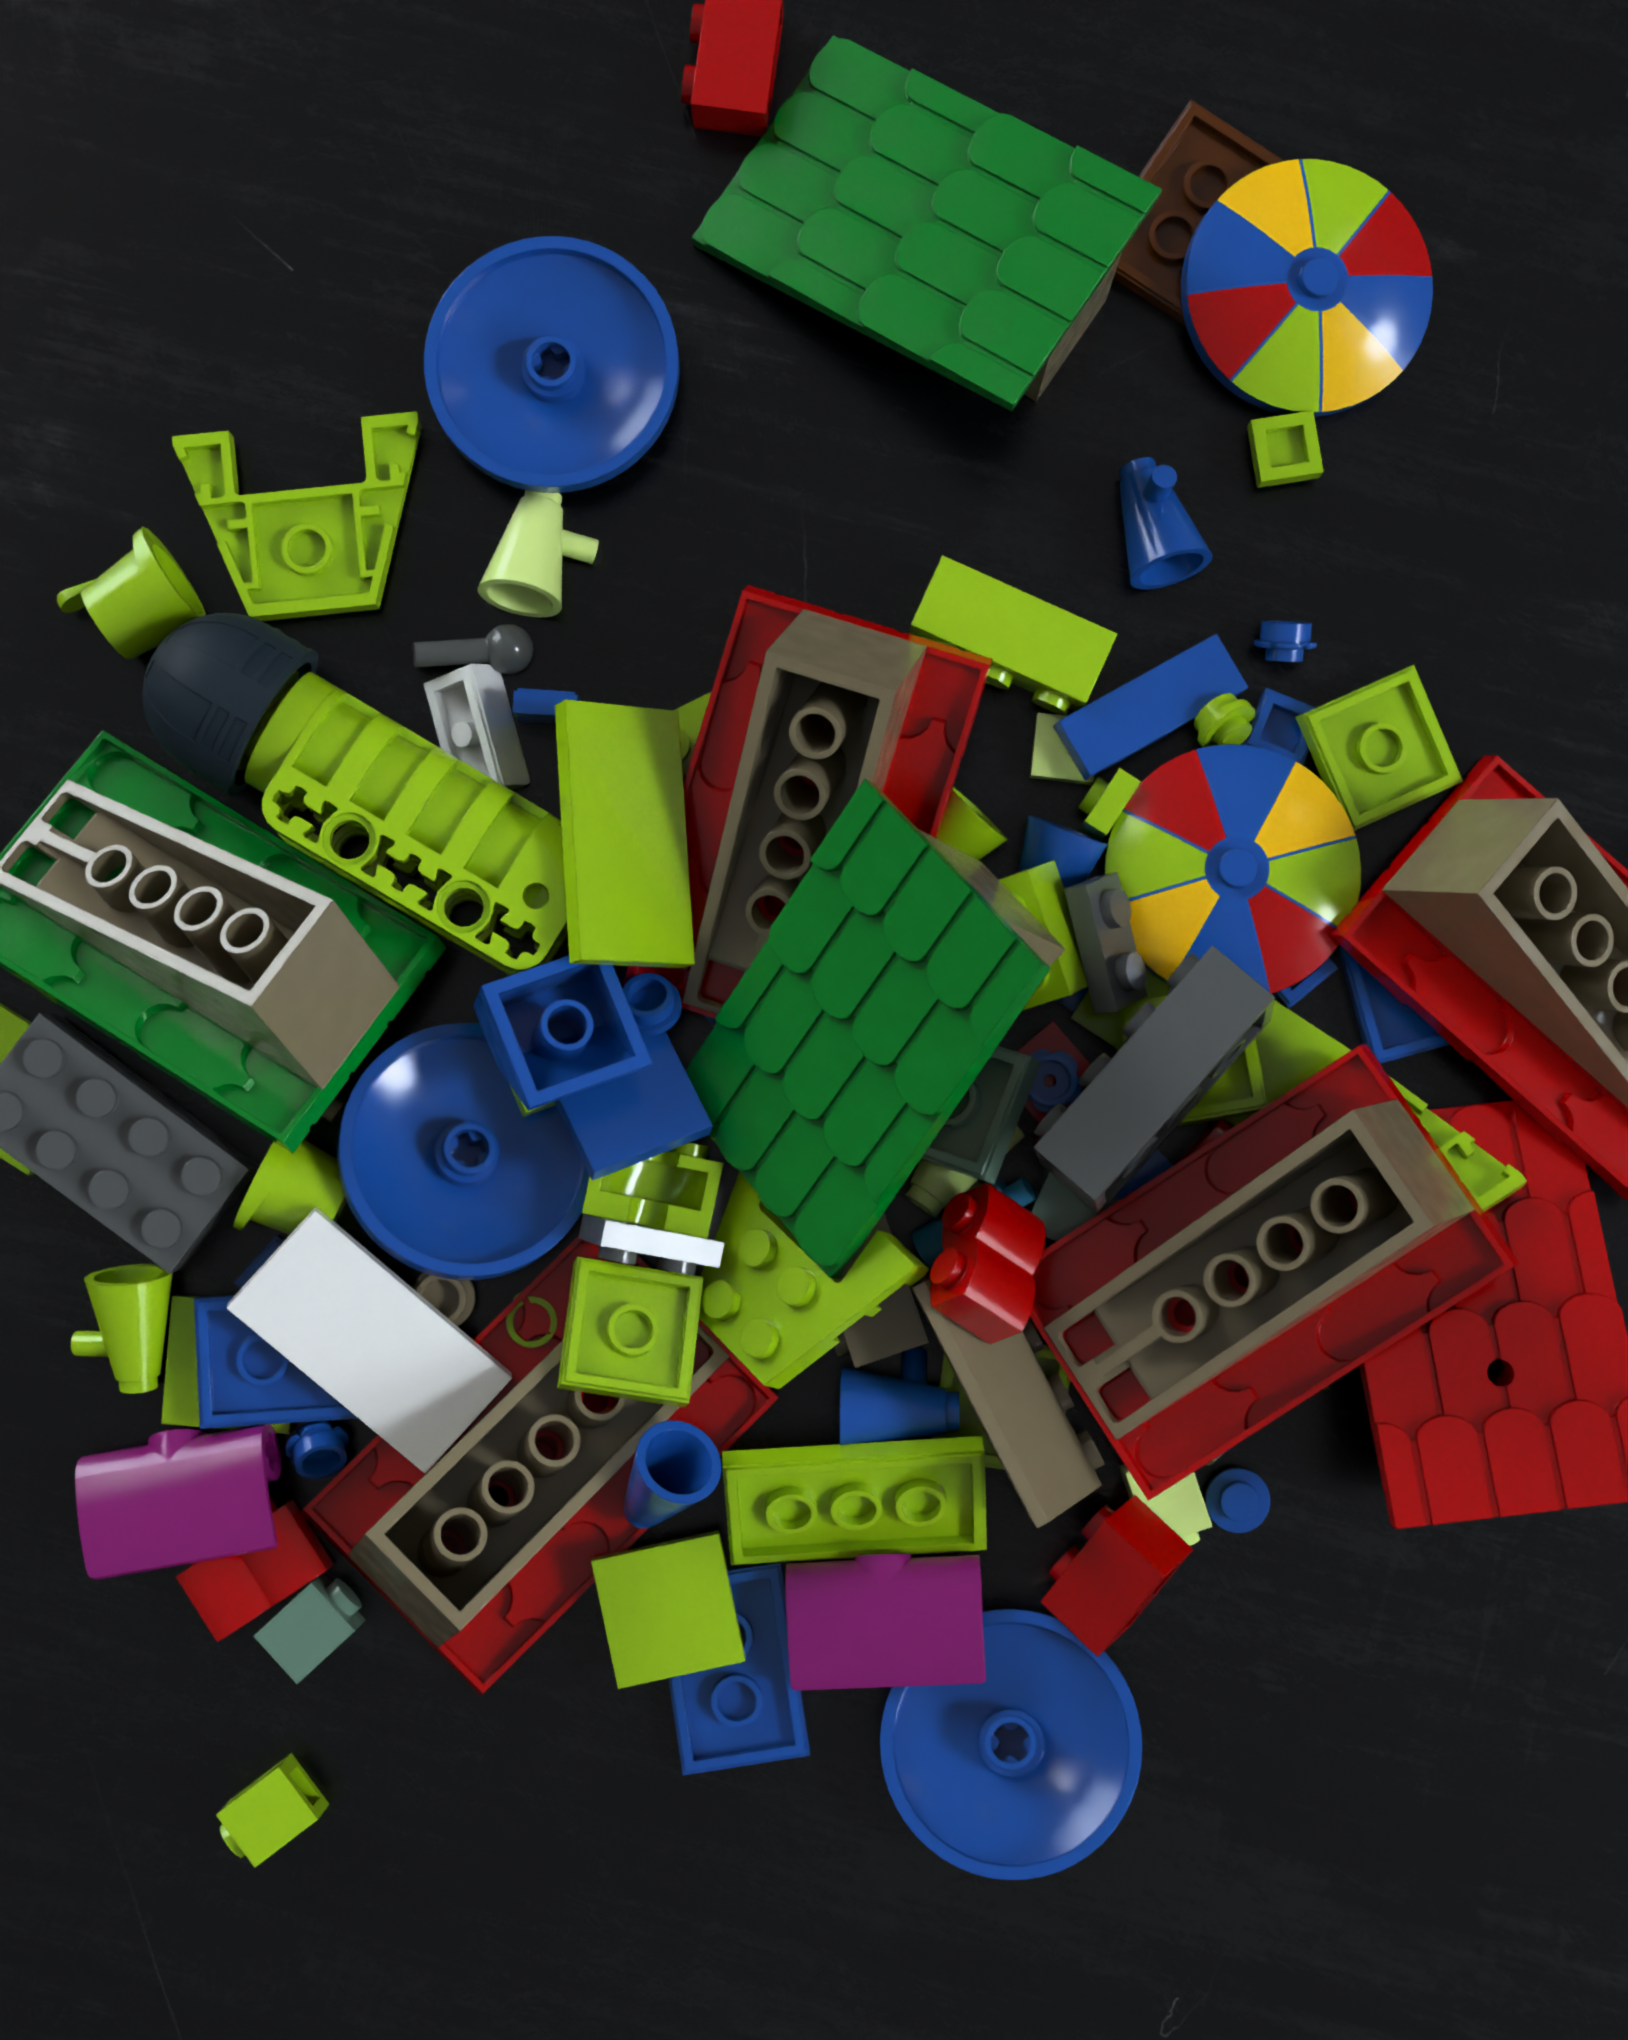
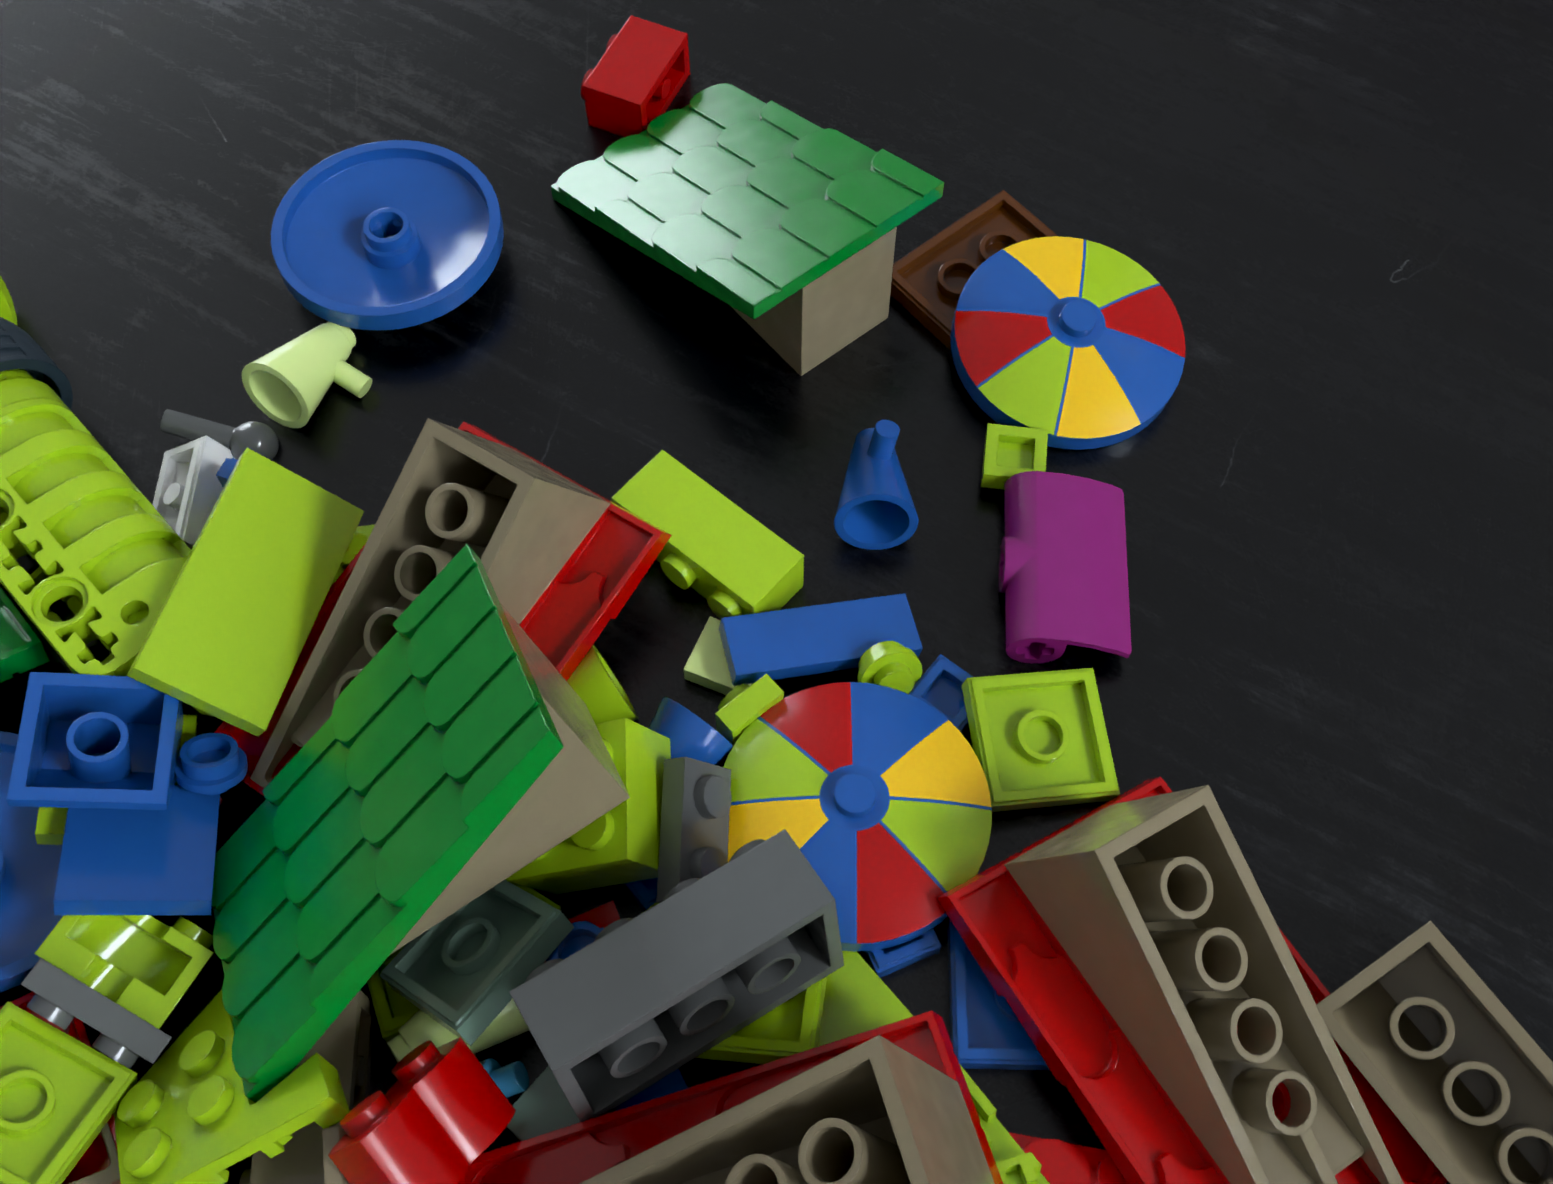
camera: 15 degrees right, 25 degrees down
(309, 545) = (133, 320): lime wing -> none
(1285, 640) = (971, 616): blue plate -> none
(1362, 560) = (1064, 566): none -> magenta panel

